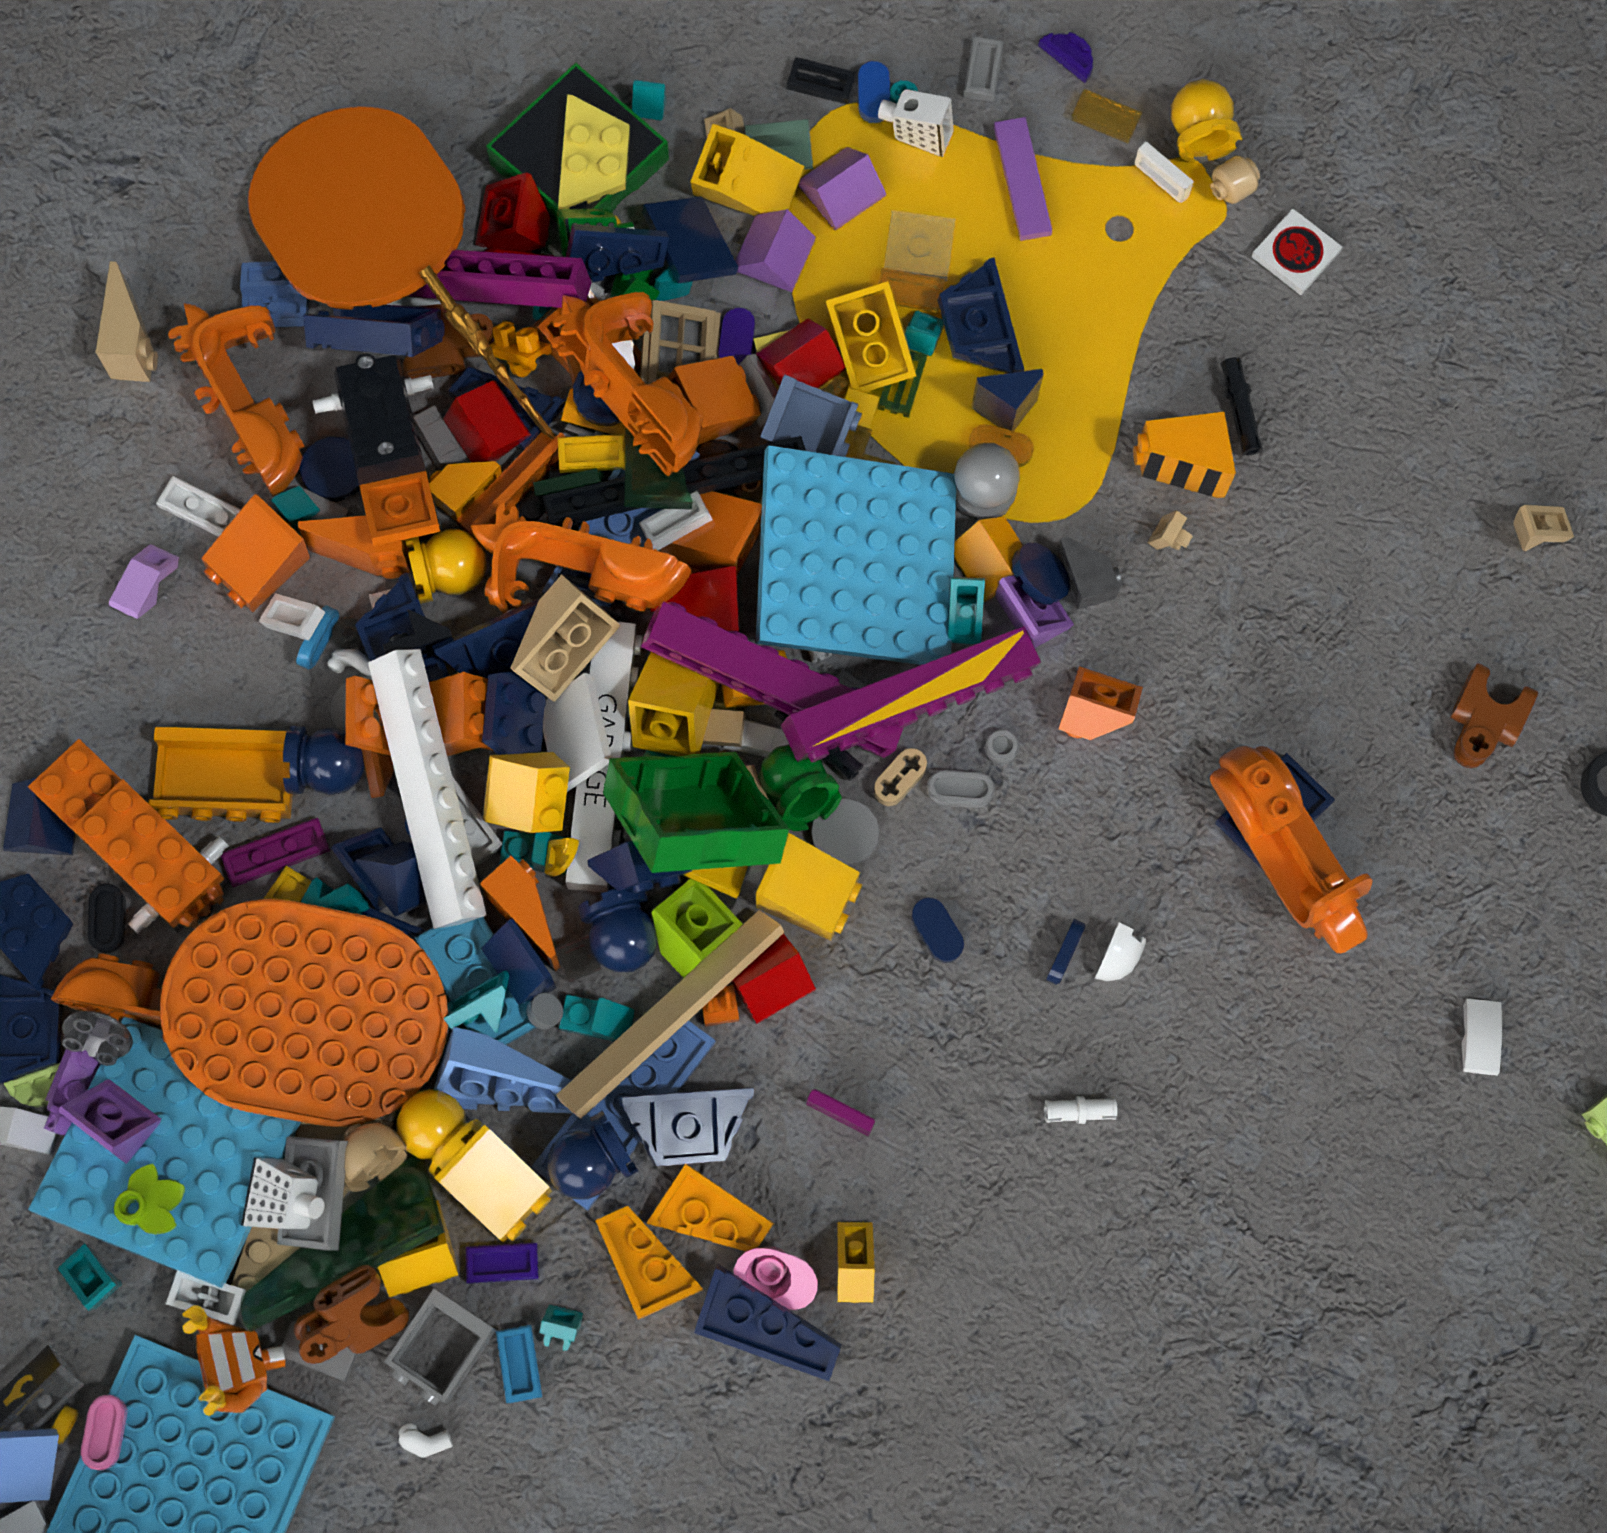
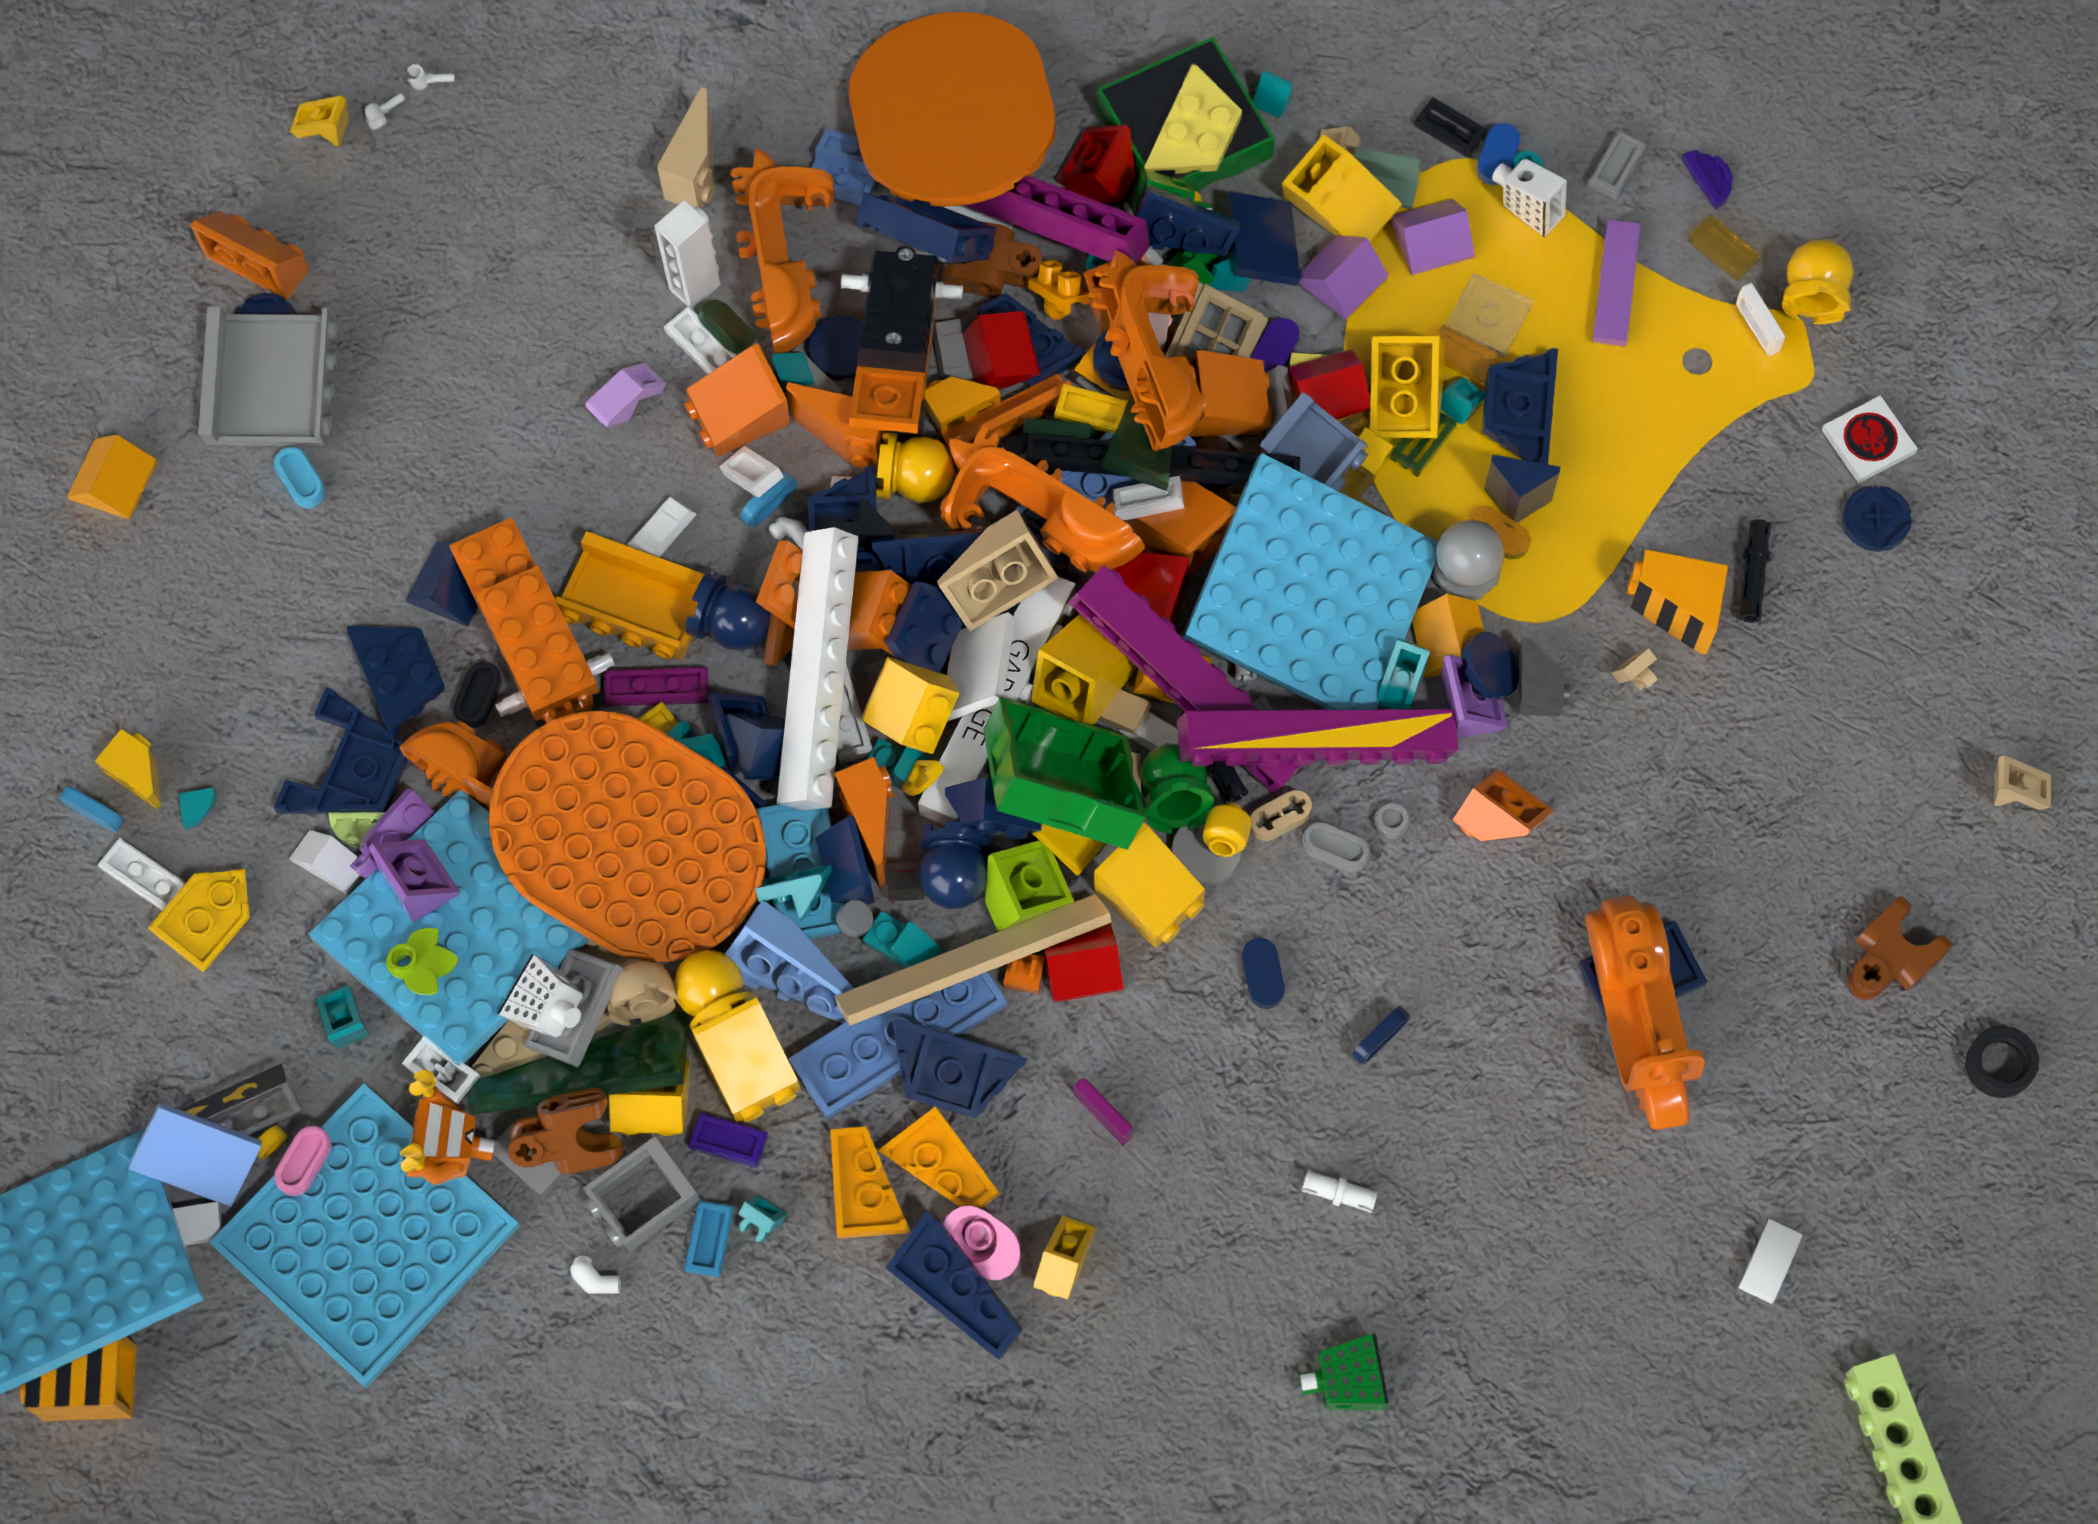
camera: 25 degrees right, 5 degrees down
(98, 1035) = (429, 793): flat silver dish -> none
(156, 427) = (688, 253): none -> white brick
(216, 484) = (726, 326): none -> tile
(225, 698) = (662, 527): none -> white tile
(473, 333) = (1017, 258): pearl gold sword -> none
(586, 1160) = (840, 1067): dark blue tile -> none
(859, 809) = (1227, 829): none -> yellow head
(1121, 954) = (1435, 1057): white brick -> none
(1152, 1279) = (1349, 1376): none -> green torso
(1235, 179) = (1830, 348): tan head -> none
(1329, 322) = (1876, 518): none -> dark blue tile

